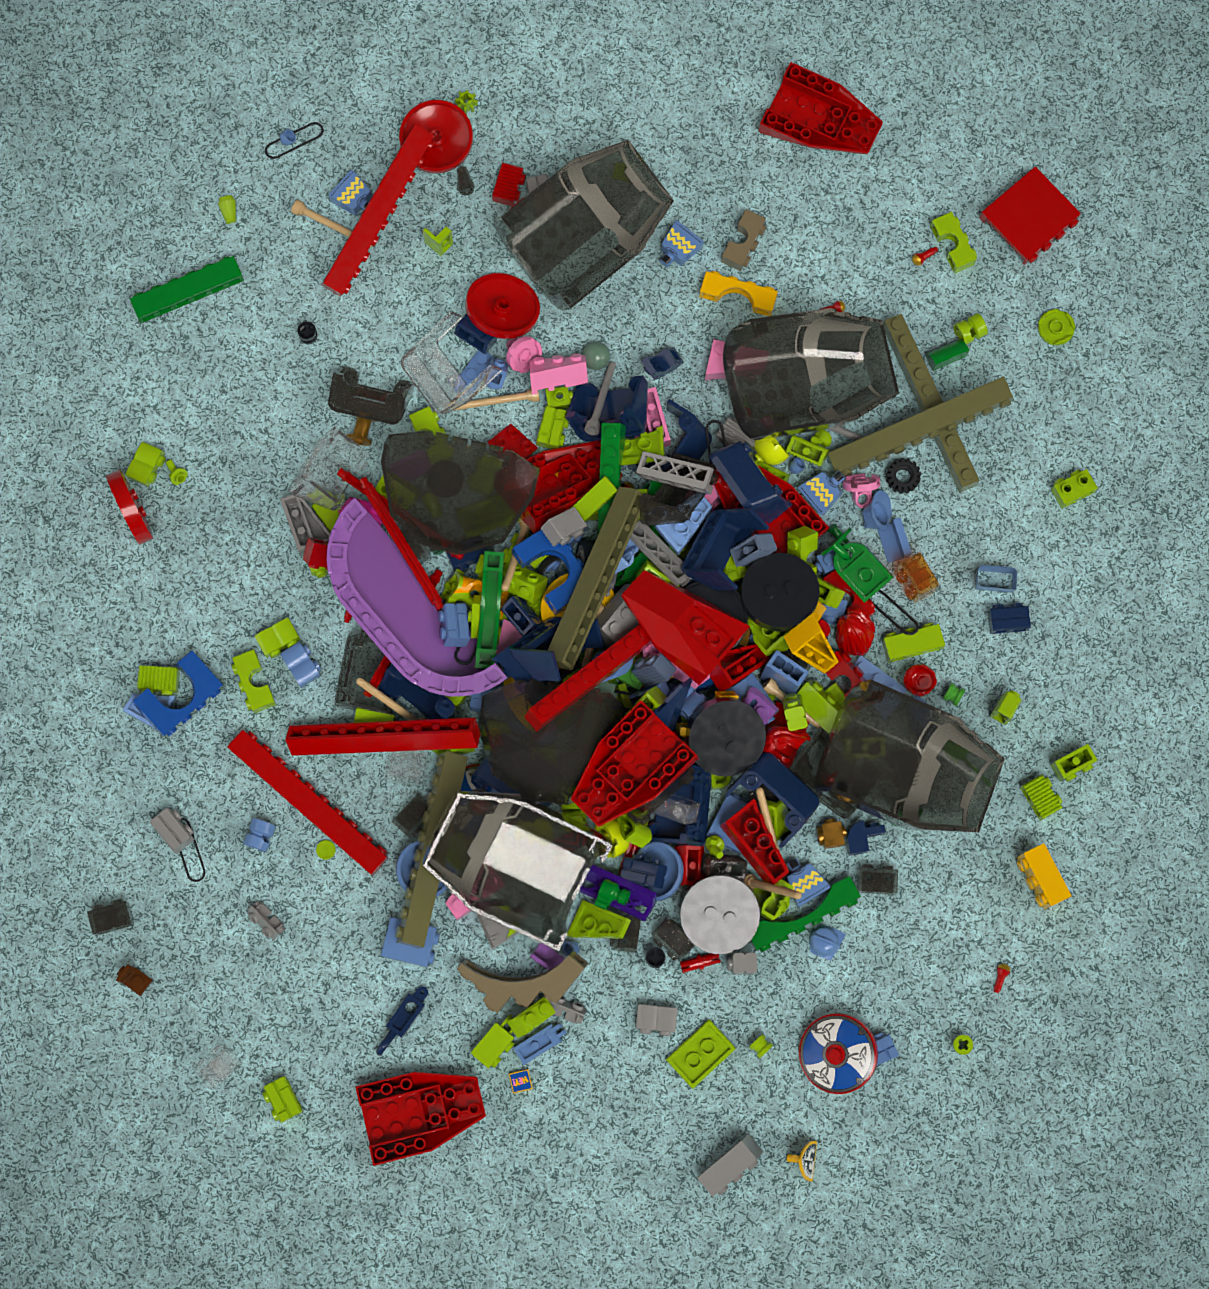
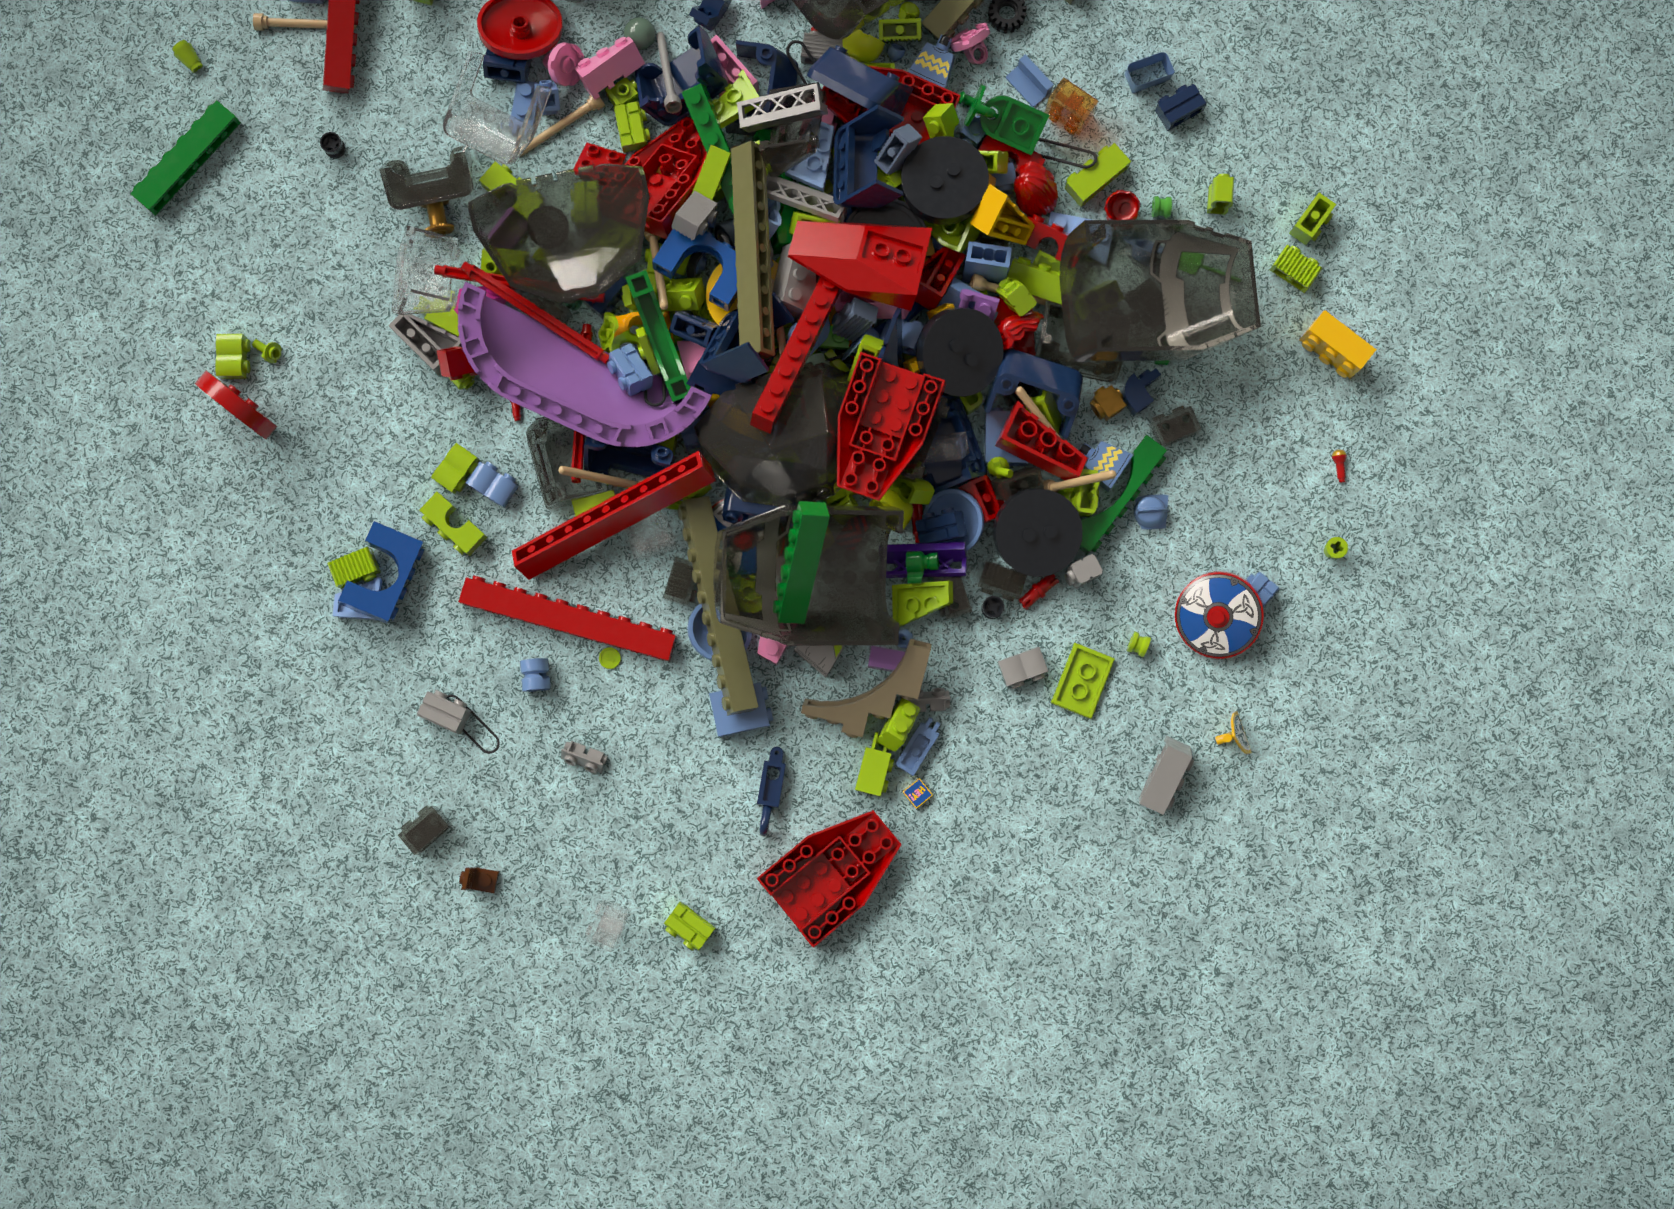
camera: 25 degrees left, 5 degrees up
(511, 847) = (801, 562): none -> green brick
(878, 512) = (999, 60): medium blue piece -> none

